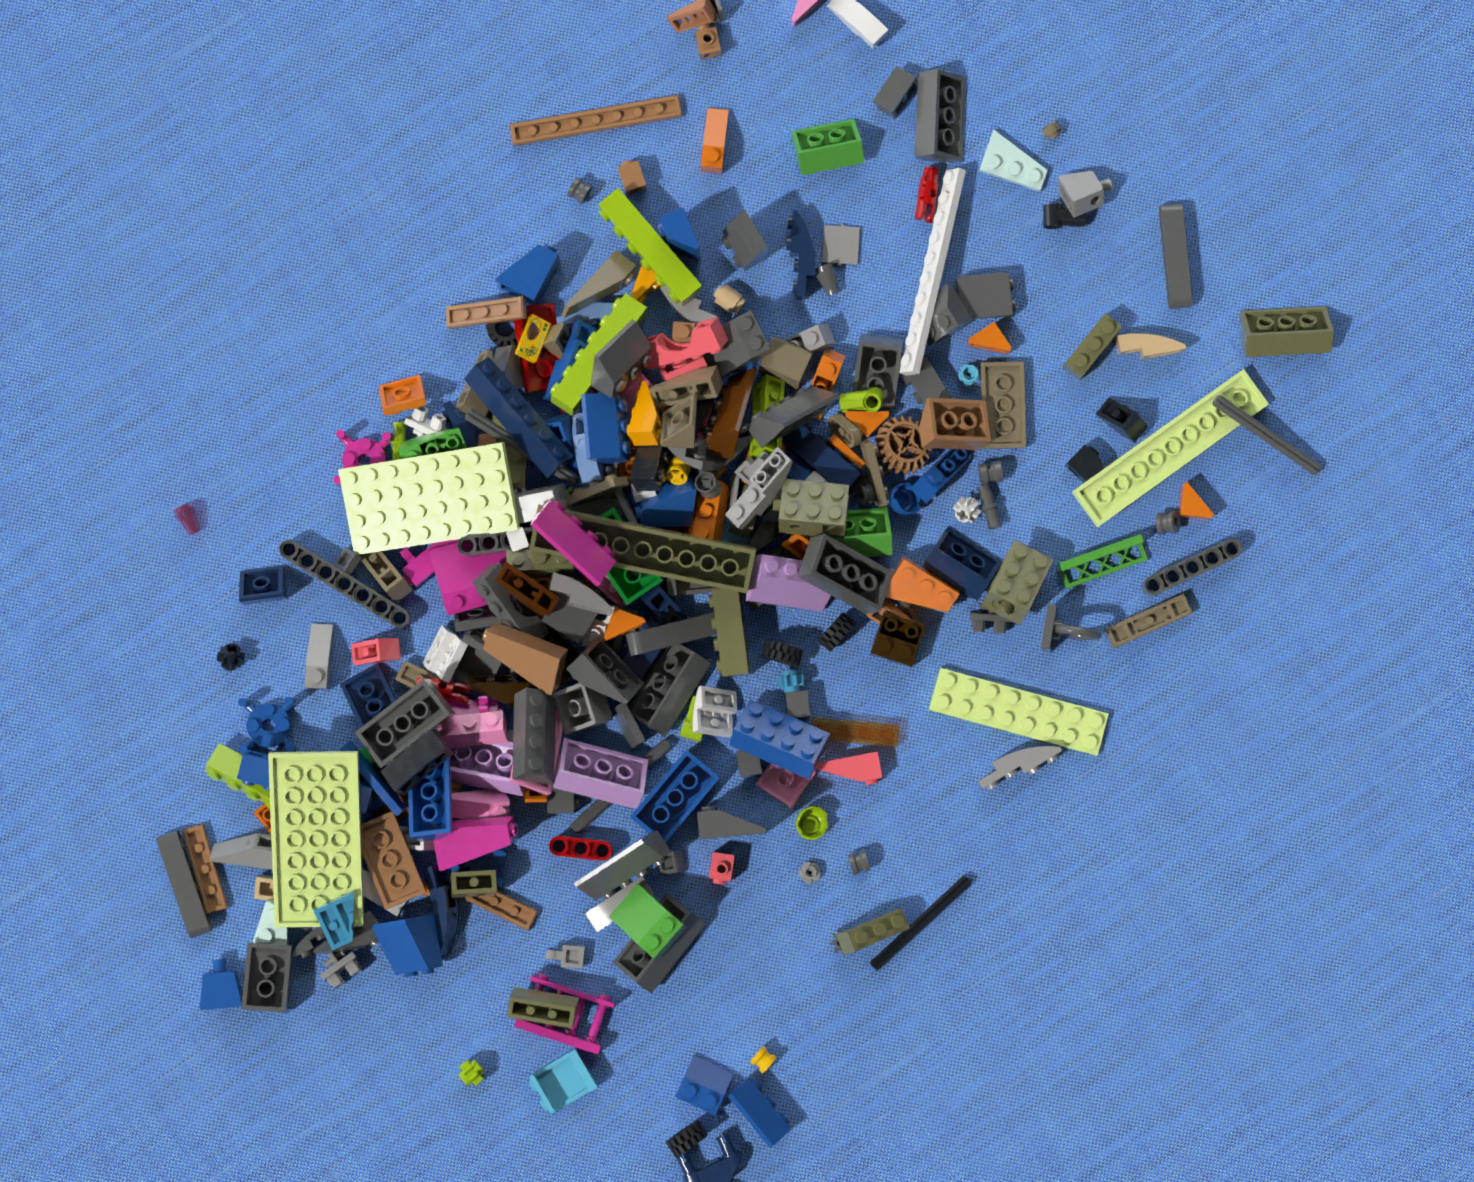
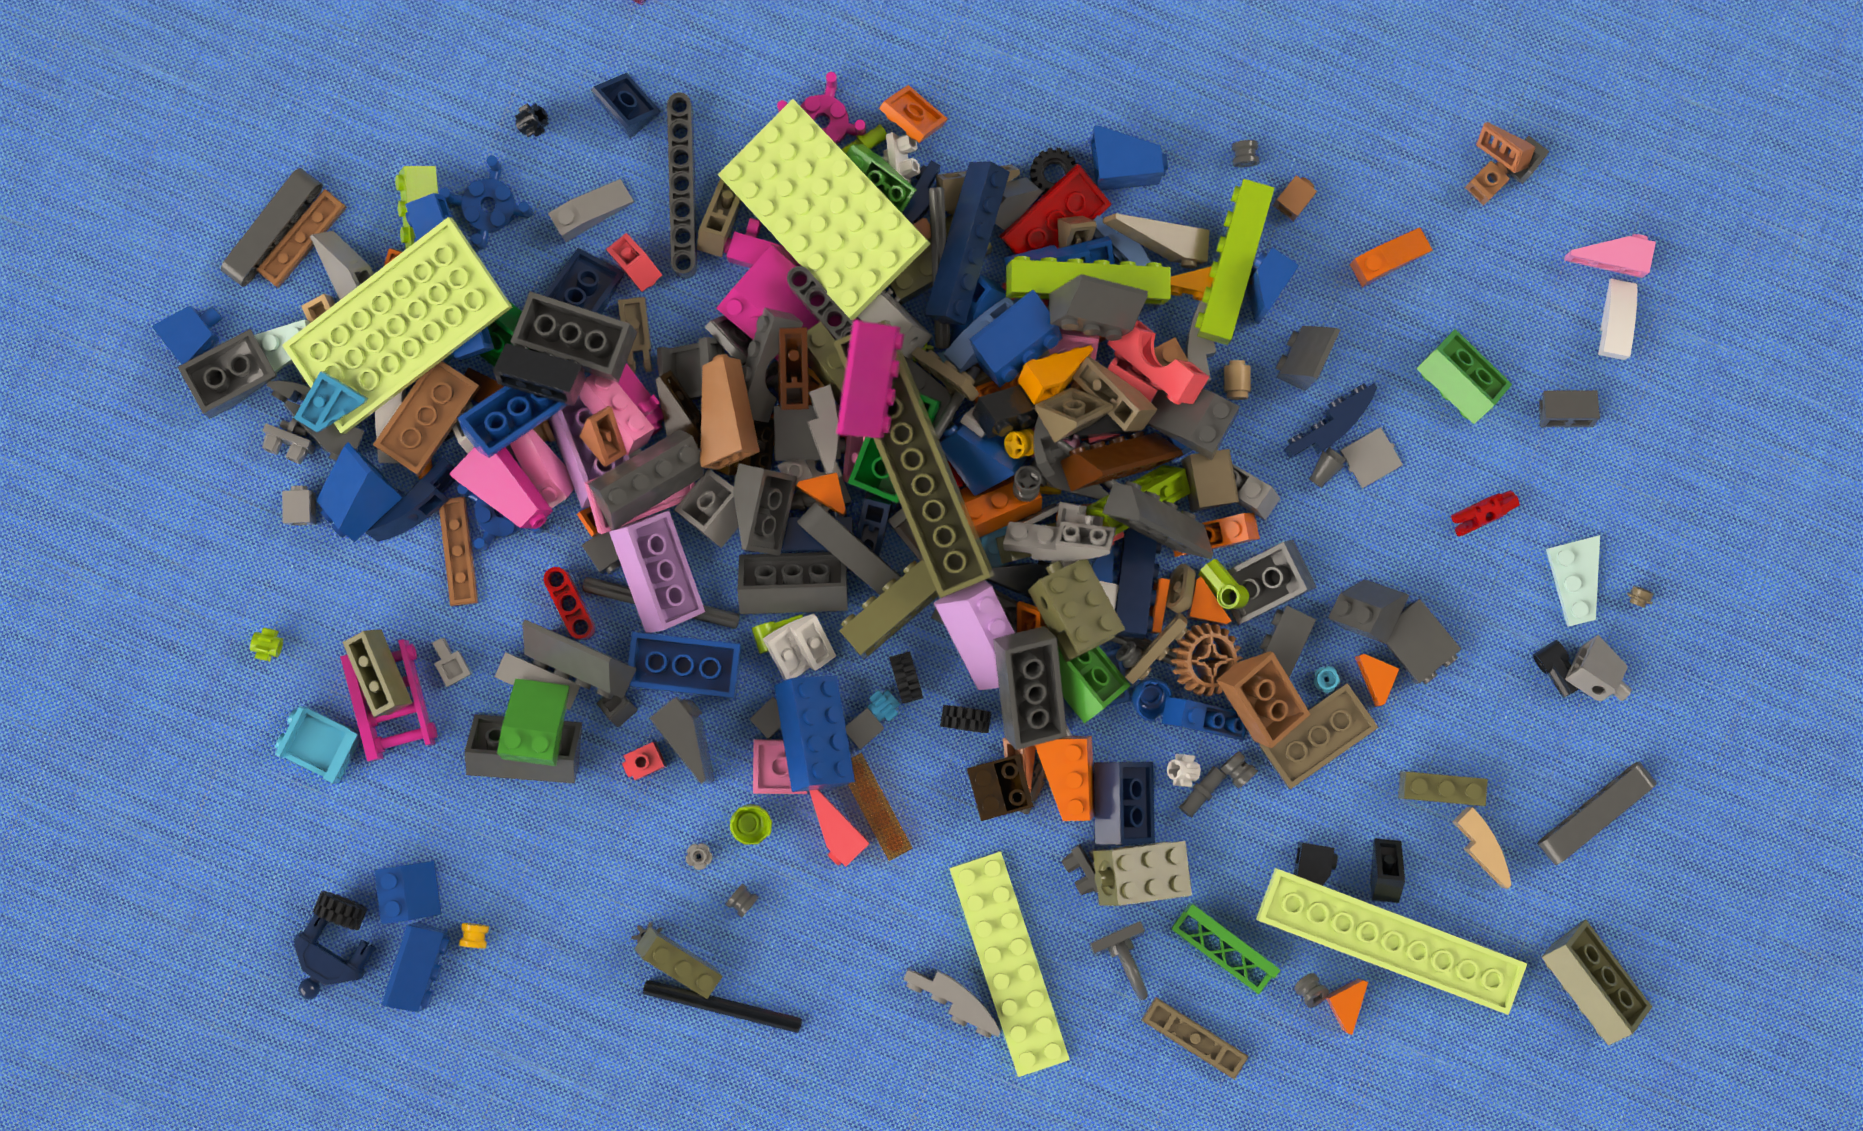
camera: 55 degrees right, 0 degrees up
(347, 561) = (707, 172): dark grey plate -> none
(376, 781) = (499, 336): blue tile -> none
(391, 989) = (299, 506): none -> light grey brick
(445, 654) = (676, 332): white slope -> none
(448, 690) = (641, 359): red hinge -> none
(473, 883) = (458, 517): olive brick -> none
(486, 312) = (1055, 141): medium nougat tile -> none
(486, 749) = (603, 436): none -> nougat slope
(517, 539) = (839, 324): white sticker -> none
(532, 338) = (1059, 205): yellow tile -> none
(595, 120) = (1329, 123): medium nougat tile -> none
(628, 725) = (726, 568): dark grey tile -> none
(932, 272) = (1407, 570): white plate -> none
(940, 116) = (1575, 471): dark grey slope -> none
(1201, 563) = (1290, 1056): dark grey beam -> none
(1266, 434) = (1474, 1034): dark grey axle -> none

